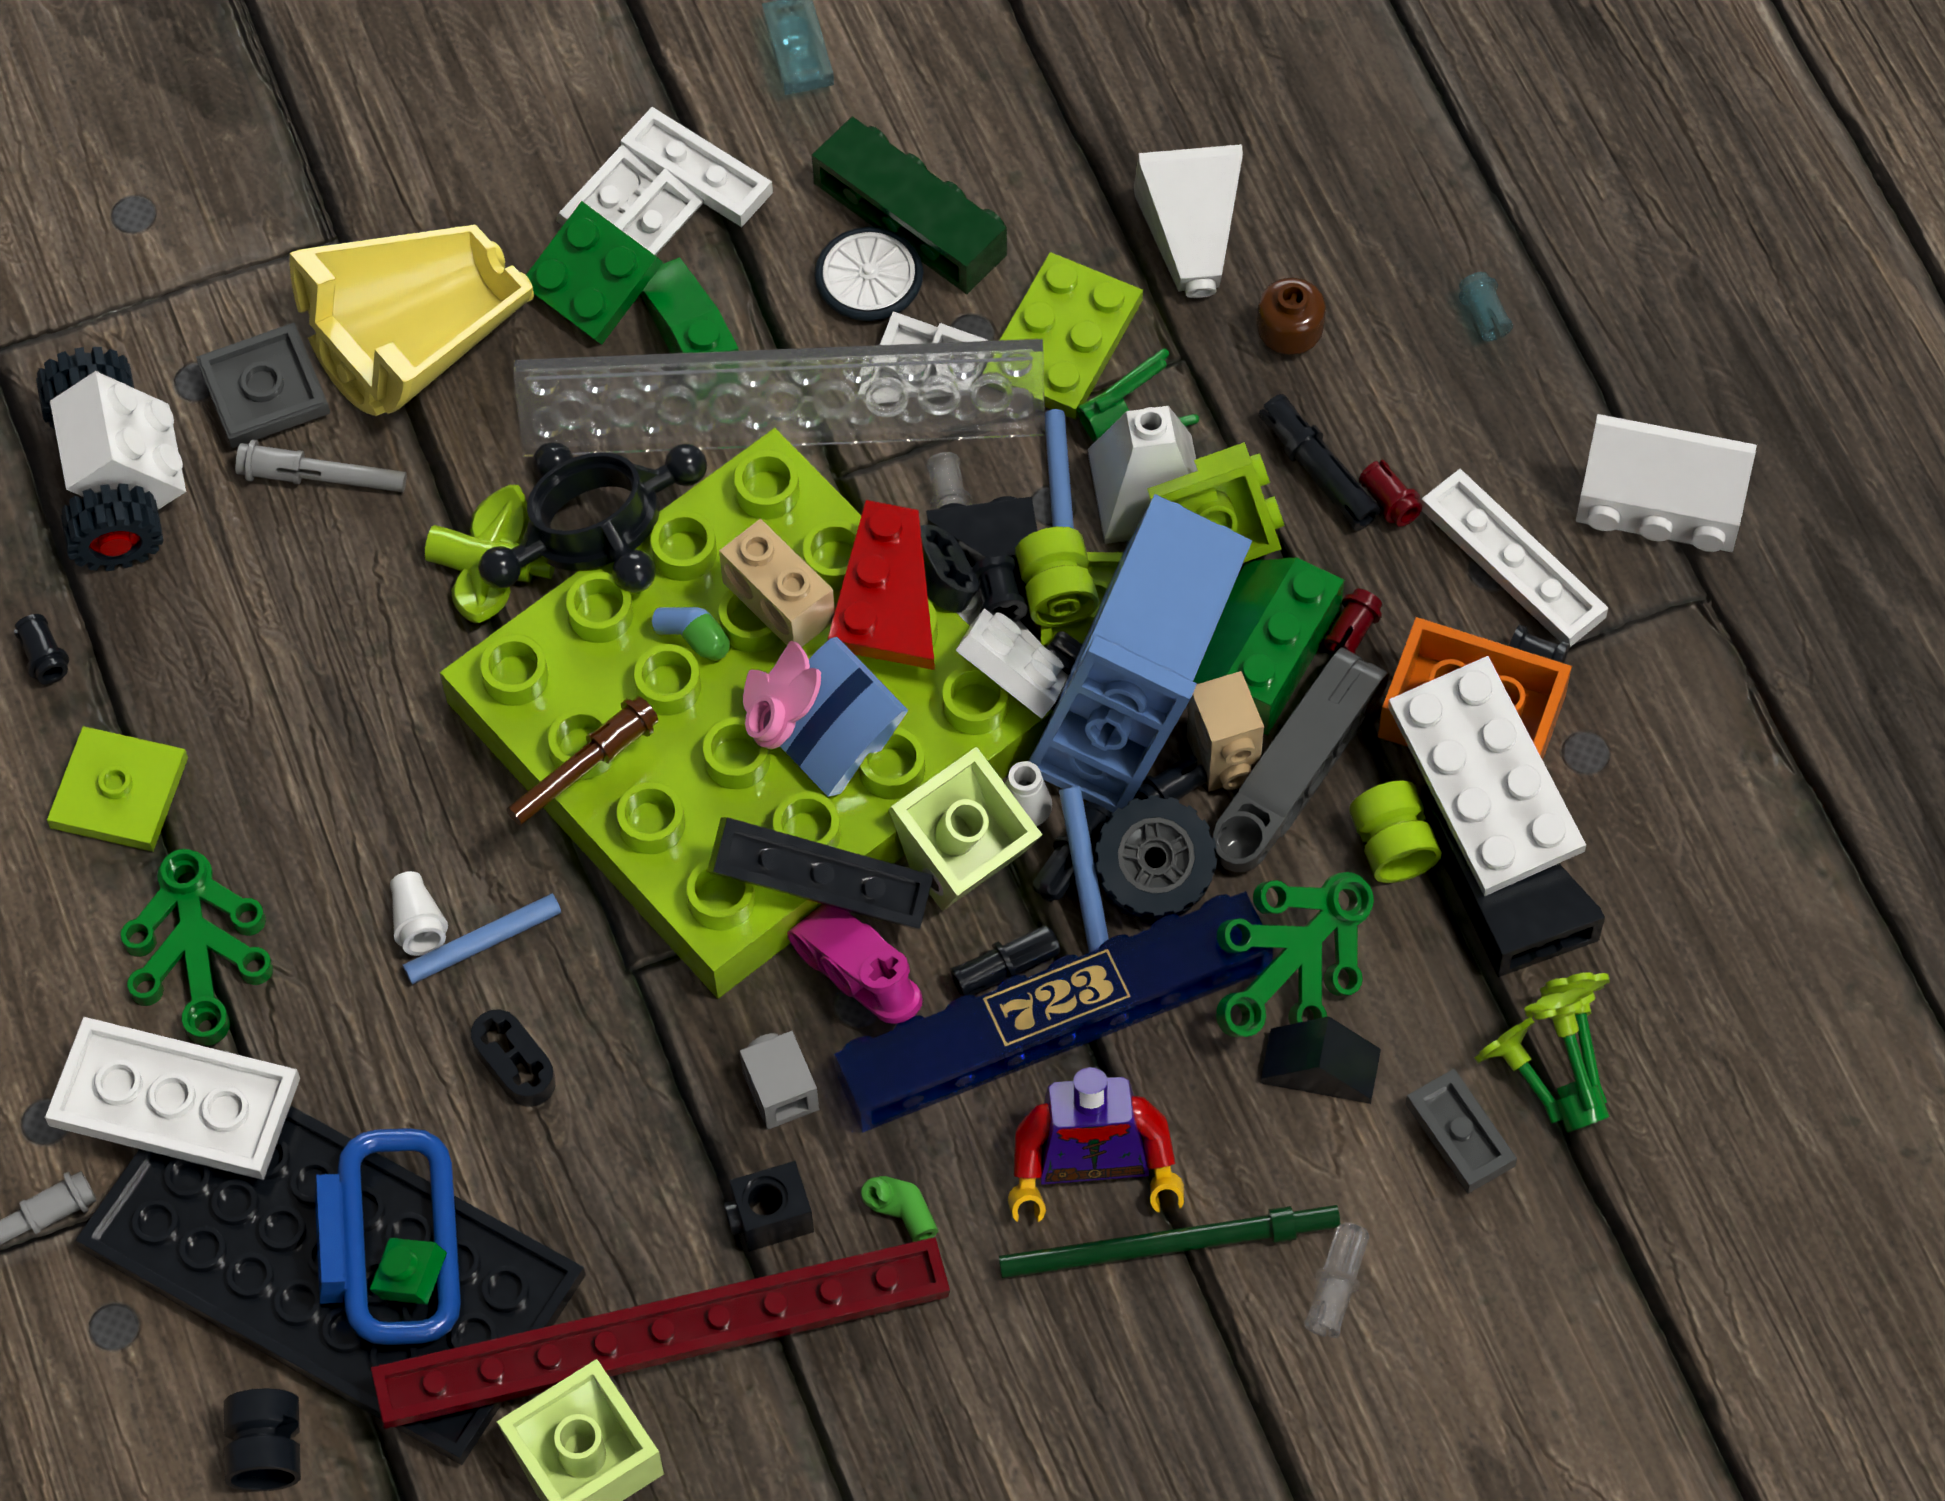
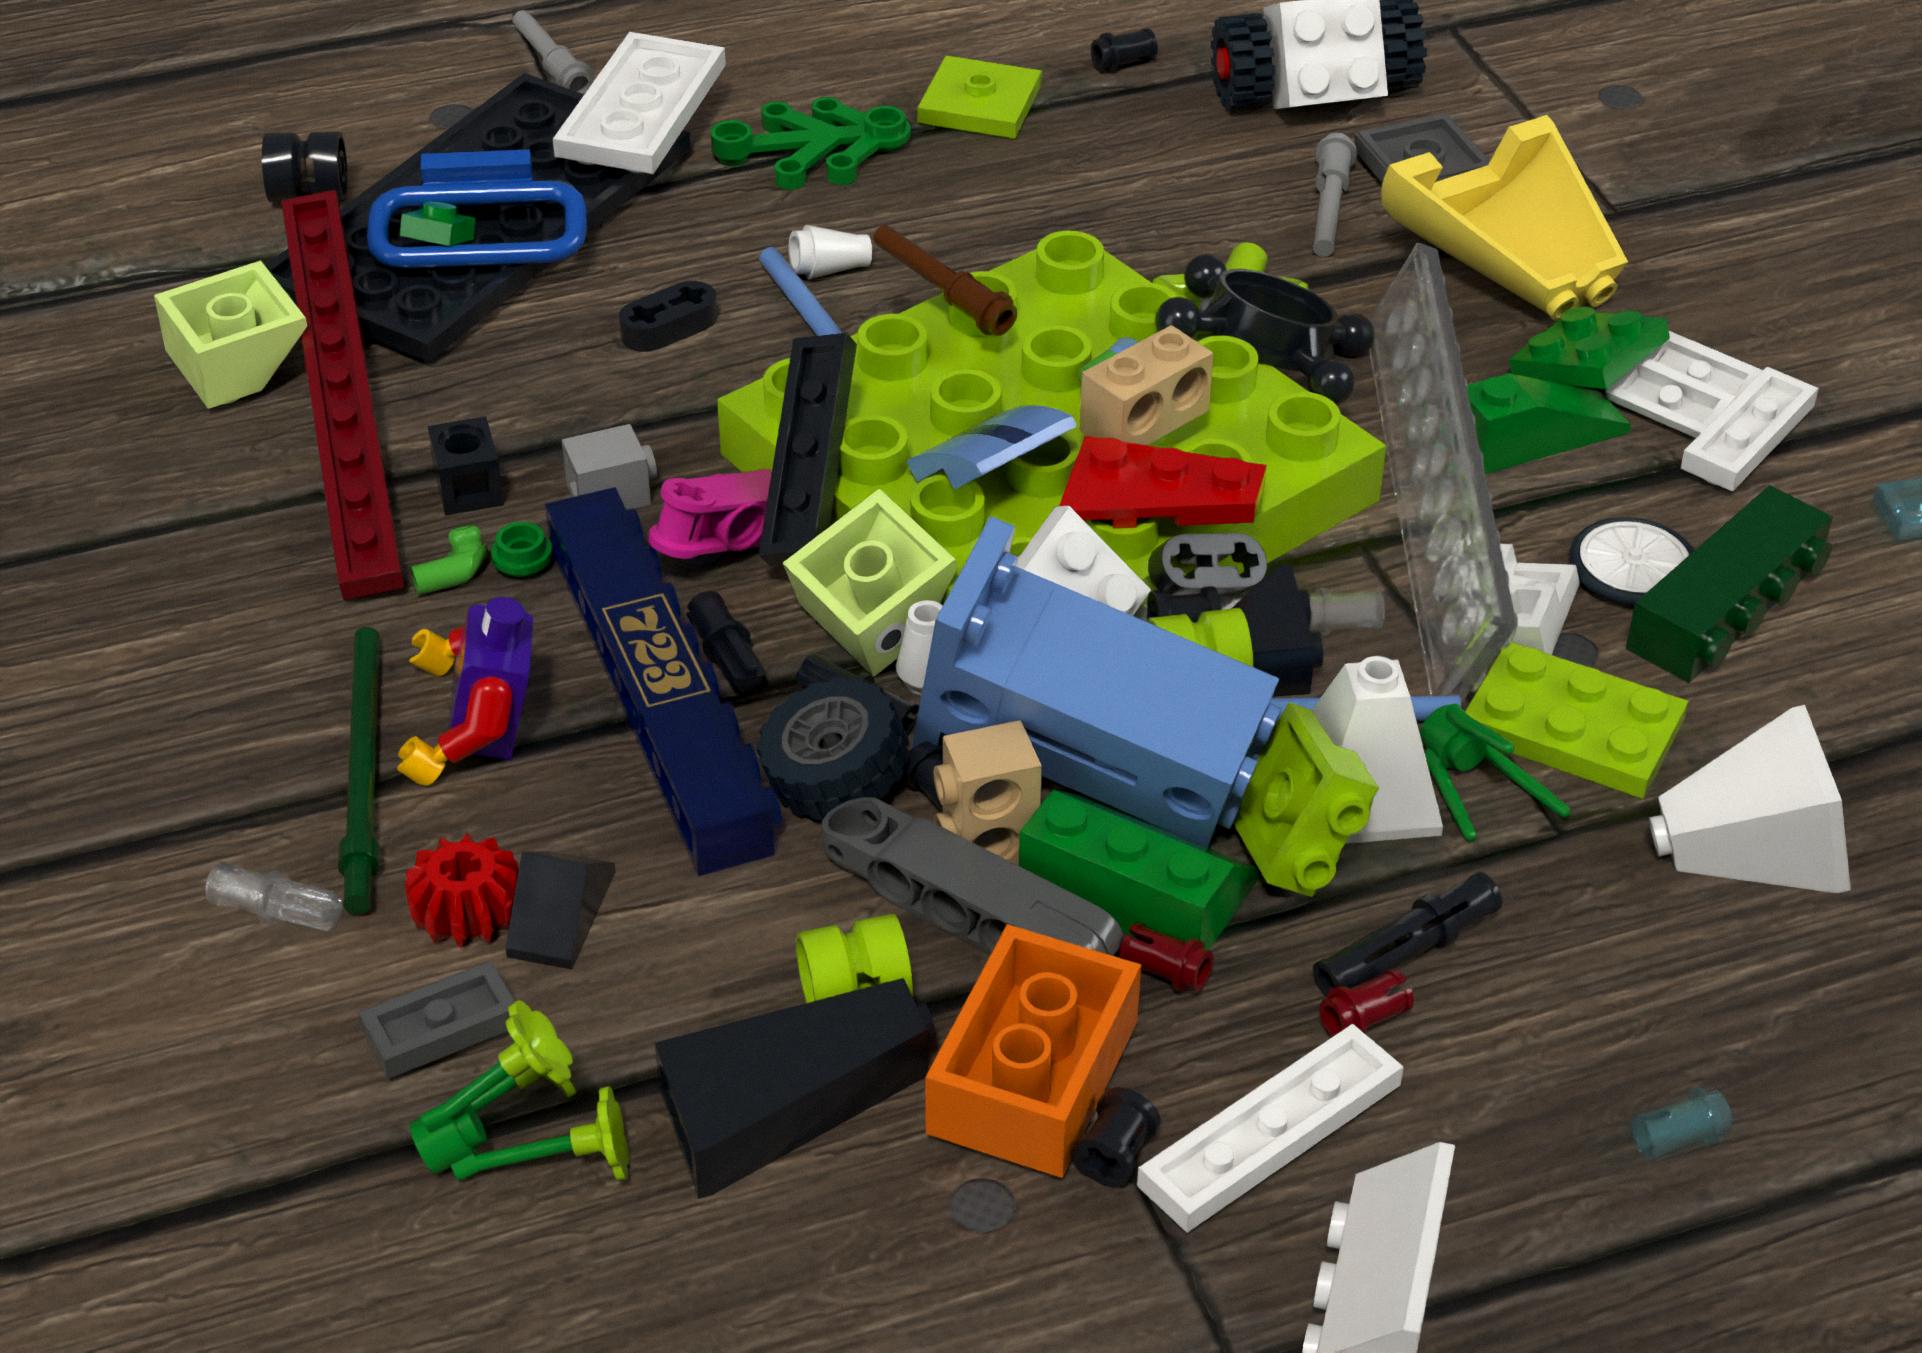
camera: 90 degrees right, 20 degrees down
(780, 697) = (987, 392): bright pink plate -> none
(883, 1132) = (521, 549): none -> green plate
(1084, 867) = (864, 667): medium blue bar -> none
(1291, 316) = (1621, 904): reddish brown head -> none
(1301, 949) = (693, 859): green plant -> none
(1345, 1121) = (462, 889): none -> red gear
(1486, 776) = (897, 1016): white plate -> none

